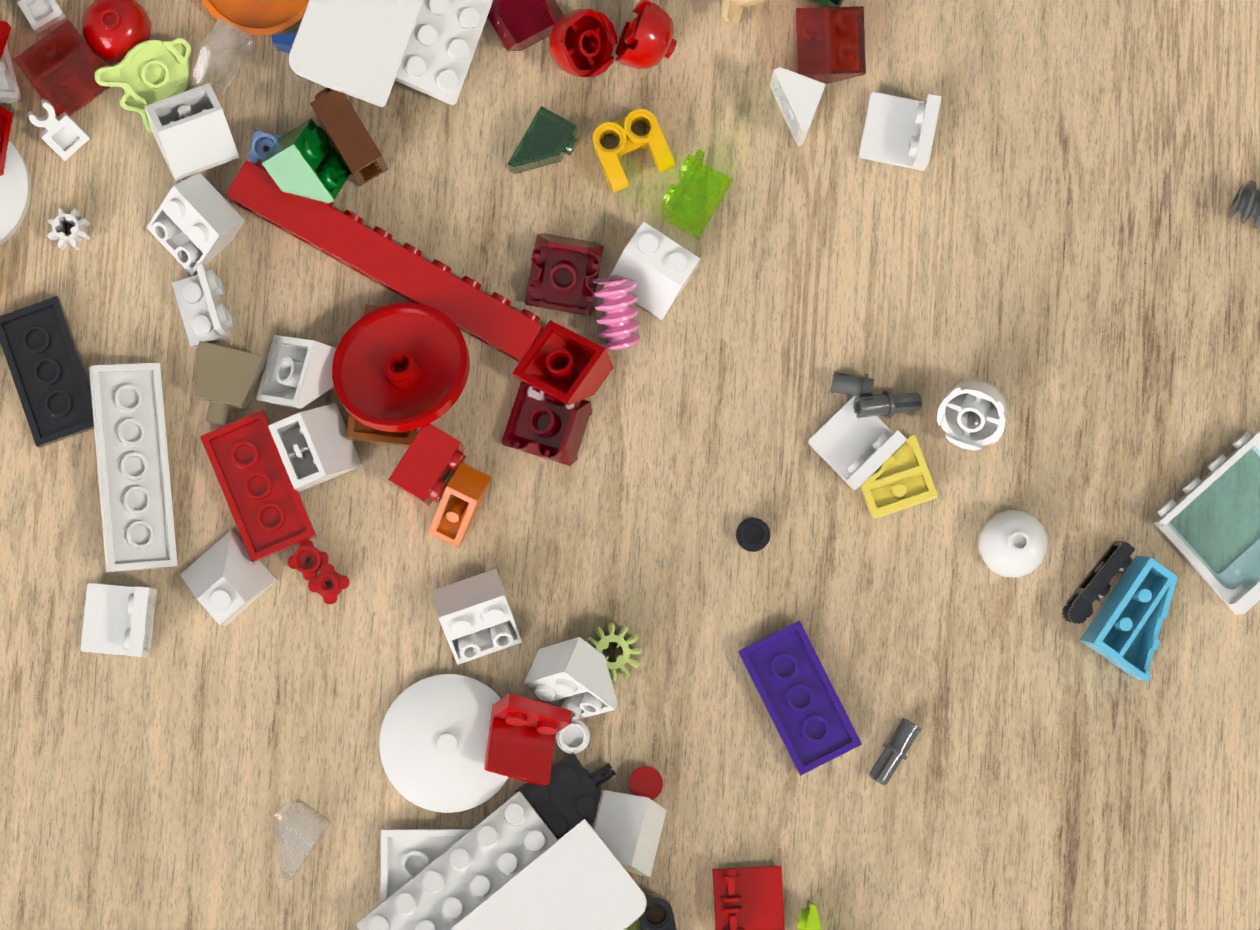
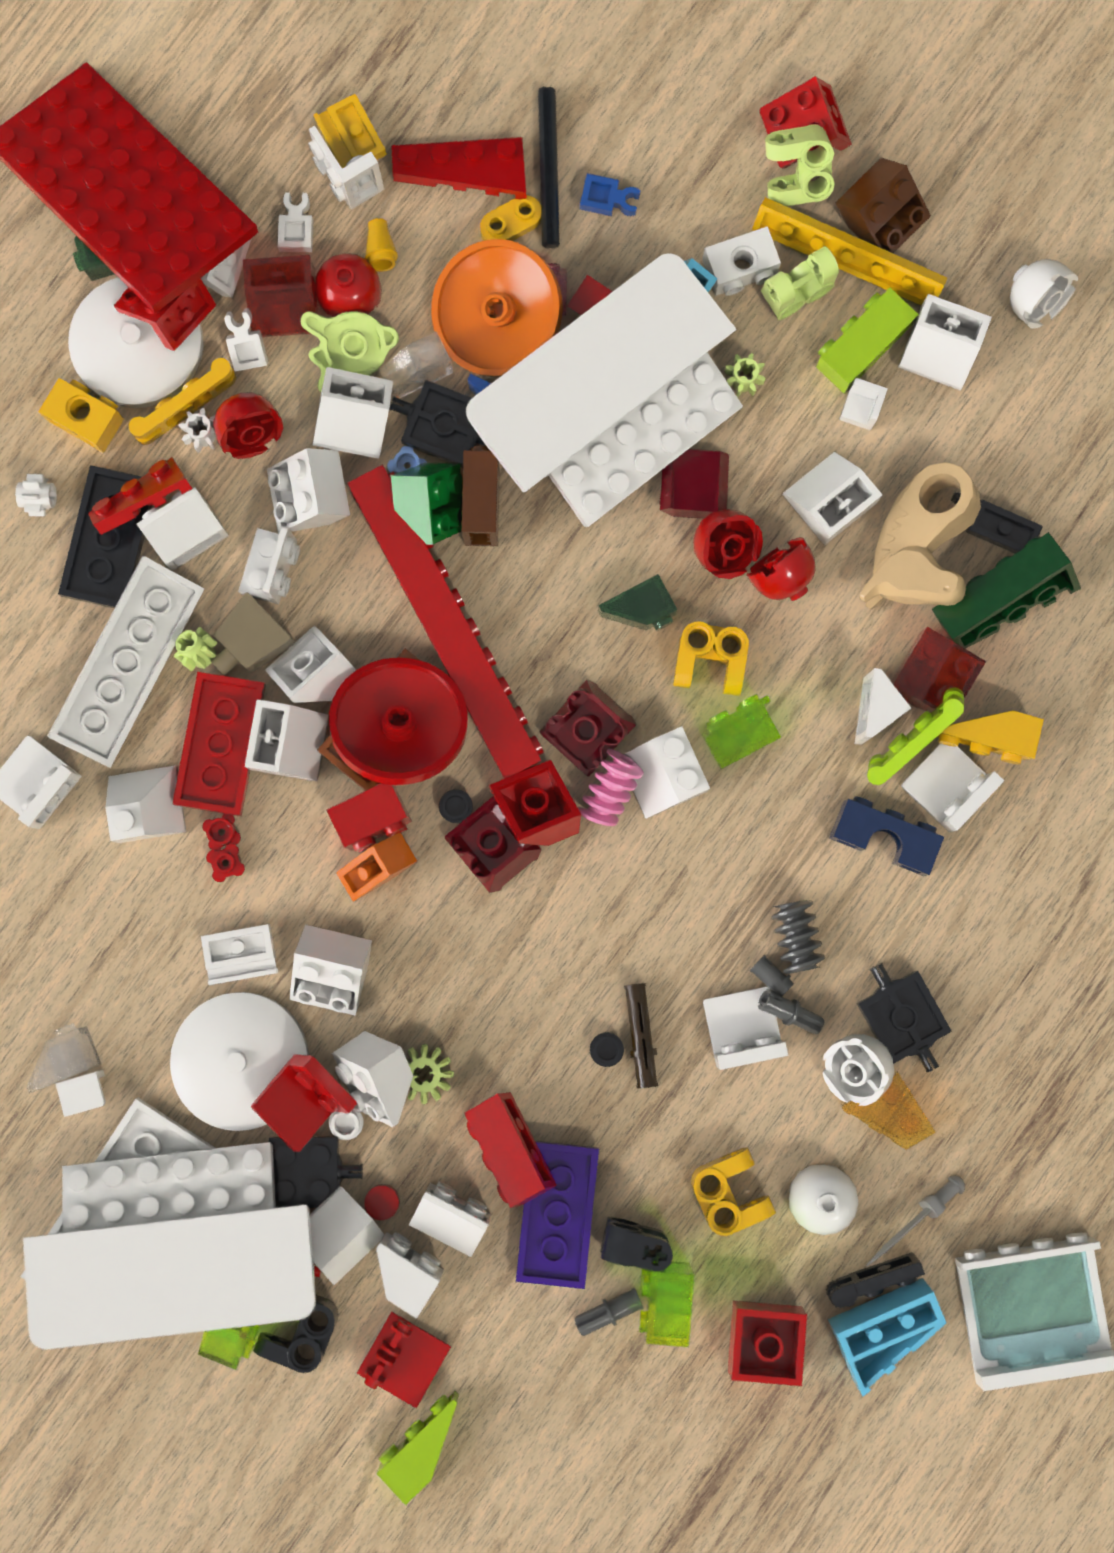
camera: 35 degrees right, 0 degrees up
(34, 227) = (174, 410): none -> yellow plate
(59, 306) = (148, 490): none -> red wing
(105, 199) = (246, 424): none -> red cylinder
(108, 321) = (182, 528): none -> white slope
(185, 418) = (195, 649): none -> yellowish green gear
(272, 95) = (438, 423): none -> black plate
(332, 854) = (81, 1093): none -> white panel
(390, 653) = (239, 954): none -> white plate
(494, 411) = (455, 806): none -> black plate
(707, 828) = (406, 1274): none -> white slope
(713, 758) = (451, 1218): none -> white slope
(724, 668) = (509, 1149): none -> red brick
(774, 504) = (641, 1036): none -> dark brown pin
(849, 94) = (926, 729): none -> lime plate
(852, 337) = (798, 936): none -> dark grey piece
(875, 682) = (626, 1241): none -> black piece
(899, 482) = (759, 1085): light yellow wing -> none
(901, 197) = (915, 844): none -> dark blue arch
(917, 58) = (1005, 733): none -> yellow slope
(929, 593) = (743, 1215): none -> yellow piece
(939, 708) = (668, 1304): none -> clear neon green brick
(984, 347) = (904, 1016): none -> black plate
(1027, 435) = (895, 1115): none -> clear yellow wing
(1041, 690) = (767, 1343): none -> red brick
(1107, 492) = (932, 1206): none -> light grey sword

